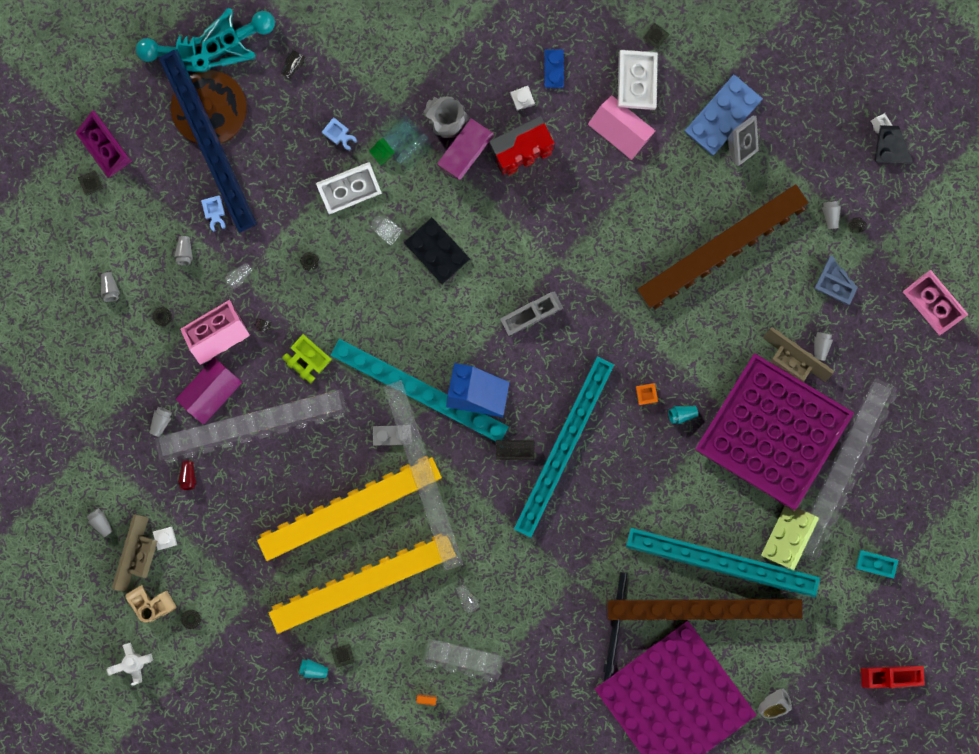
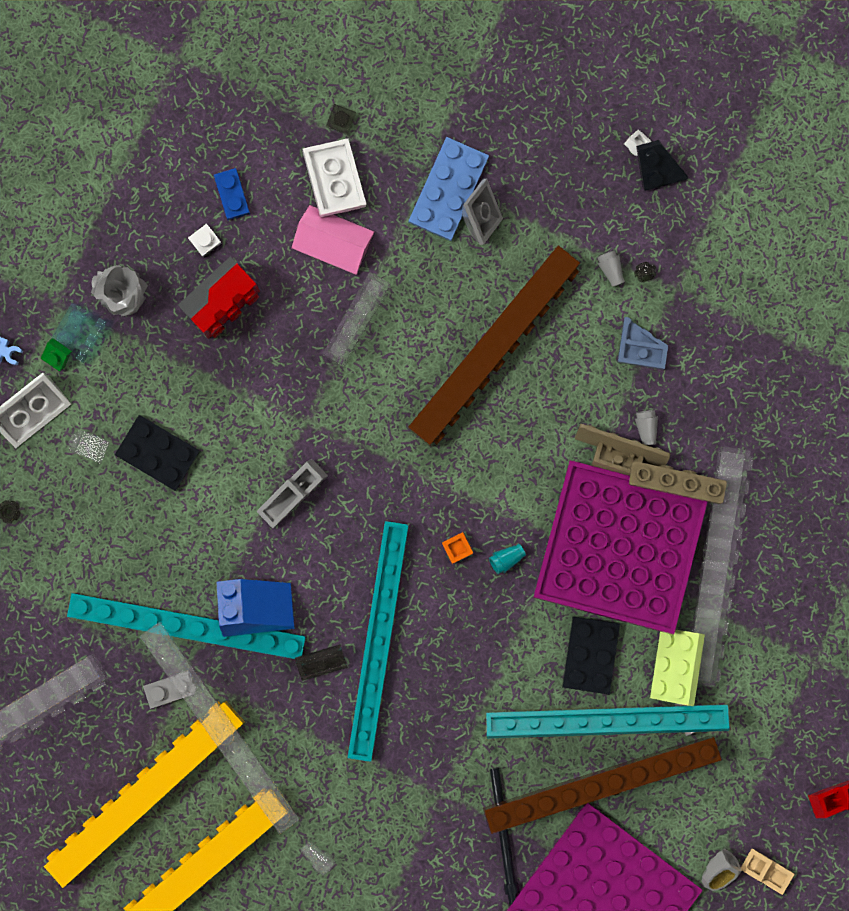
camera: 20 degrees left, 0 degrees up
(309, 353) = (43, 622): lime plate -> none
(465, 149) = (152, 323): magenta slope -> none
(621, 195) = (356, 320): none -> clear brick
(725, 508) = (591, 655): none -> black plate
(811, 716) = (767, 871): none -> tan slope
(833, 395) = (680, 483): none -> dark tan bracket
(876, 564) = (789, 666): teal plate -> none
(935, 302) = (764, 335): bright pink slope -> none

